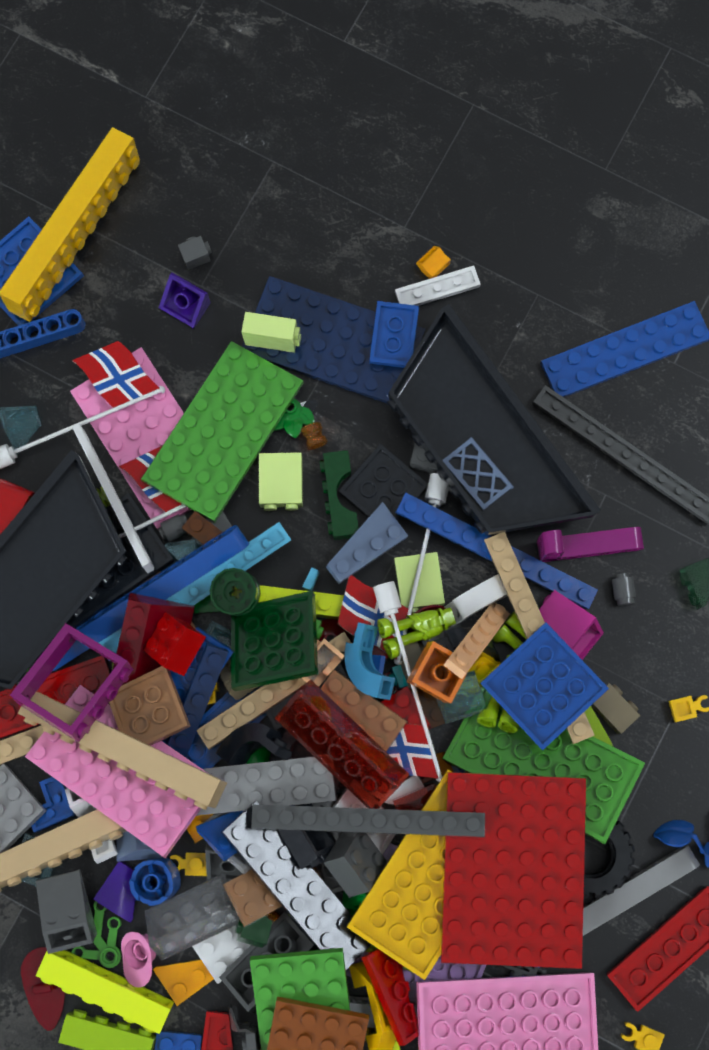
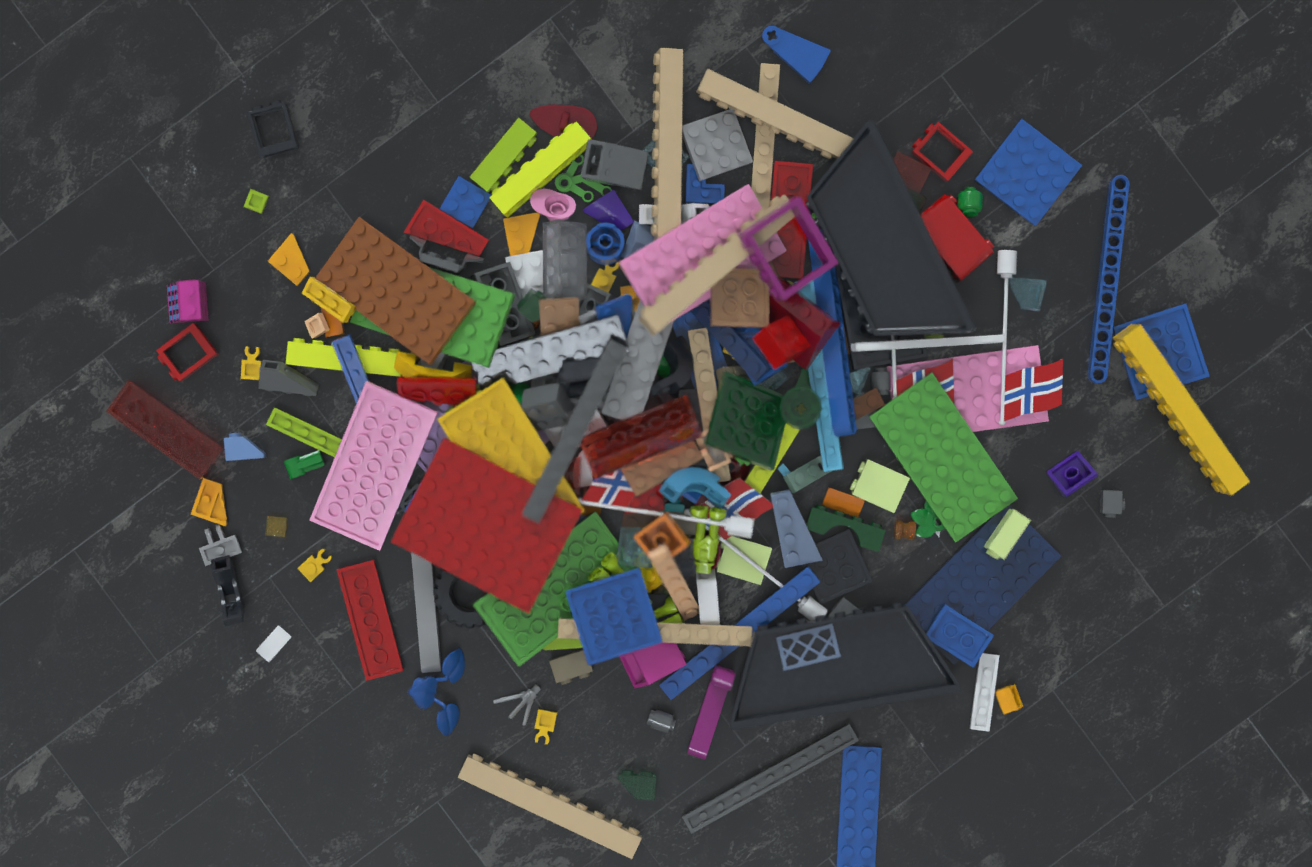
camera: 115 degrees right, 10 degrees up
(302, 558) = (805, 475): none -> sand green plate
(314, 509) = (843, 502): none -> orange slope
(668, 739) = (528, 697): none -> light grey plant

